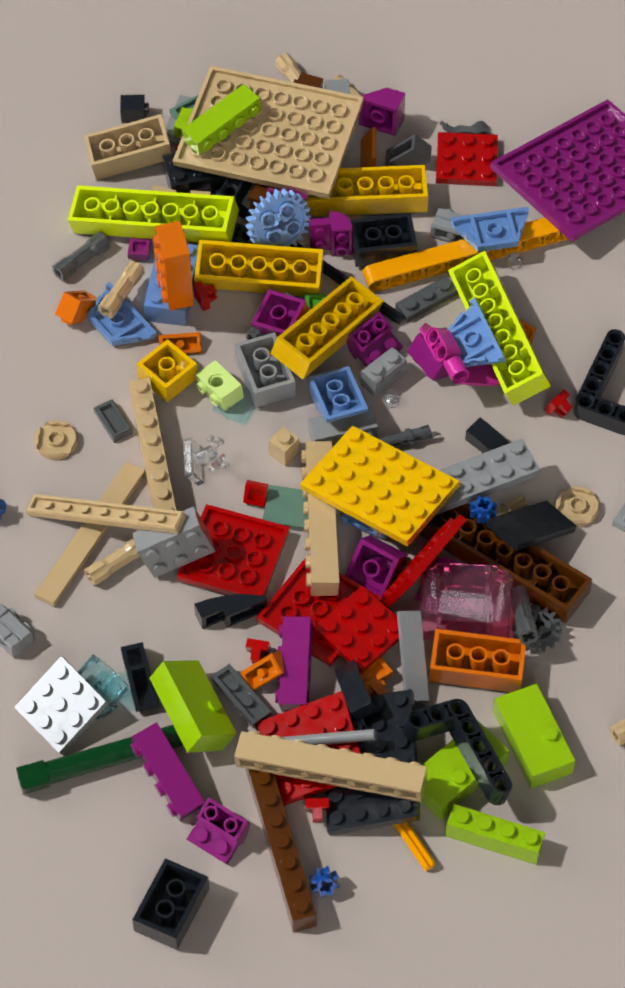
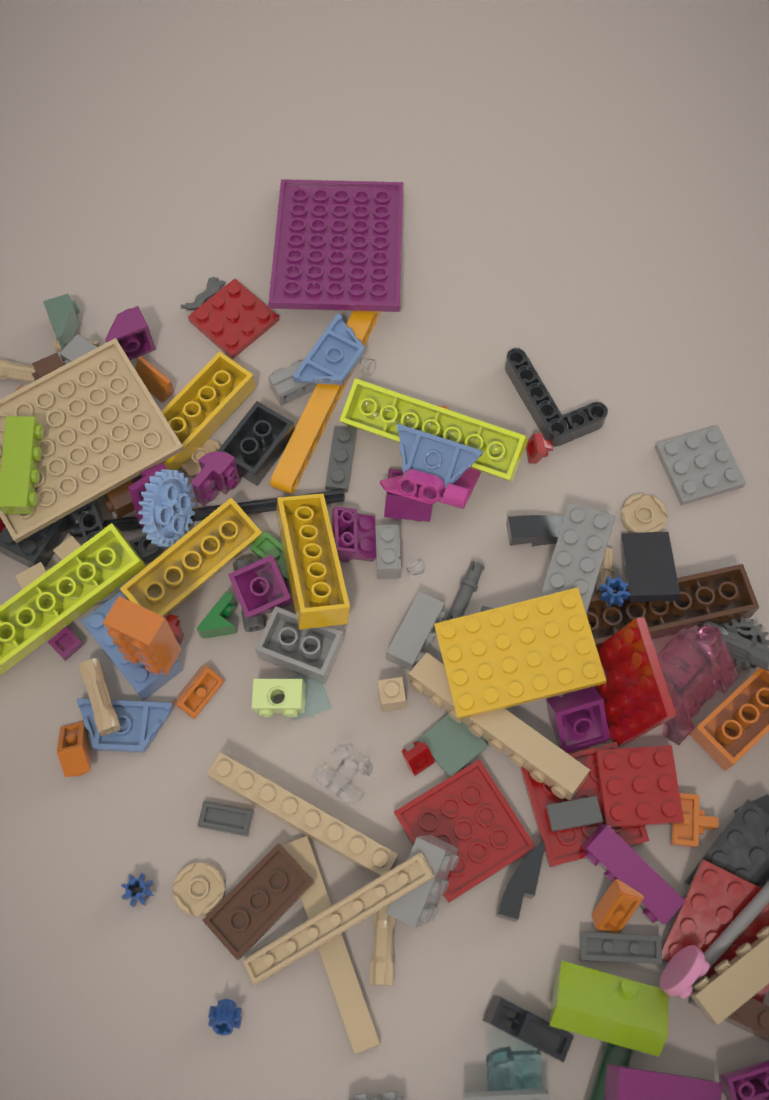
camera: 50 degrees left, 10 degrees up
(24, 406) = (139, 897): none -> blue gear
(69, 264) = (23, 685): dark grey axle -> none
(78, 473) = (258, 901): none -> reddish brown plate
(168, 370) = (223, 728): yellow brick -> none
(234, 314) = (215, 623): none -> green slope
(257, 649) = (583, 892): red tile -> none
(263, 725) = (683, 972): none -> bright pink tile
(304, 603) = (574, 814): none -> dark grey tile
(336, 394) = (388, 610): medium blue slope -> none
(355, 690) = (710, 847): black slope -> none
(357, 65) = (63, 318): none -> sand green slope
(409, 152) = (188, 354): dark grey slope -> none
(413, 654) = (701, 766): light grey tile -> none

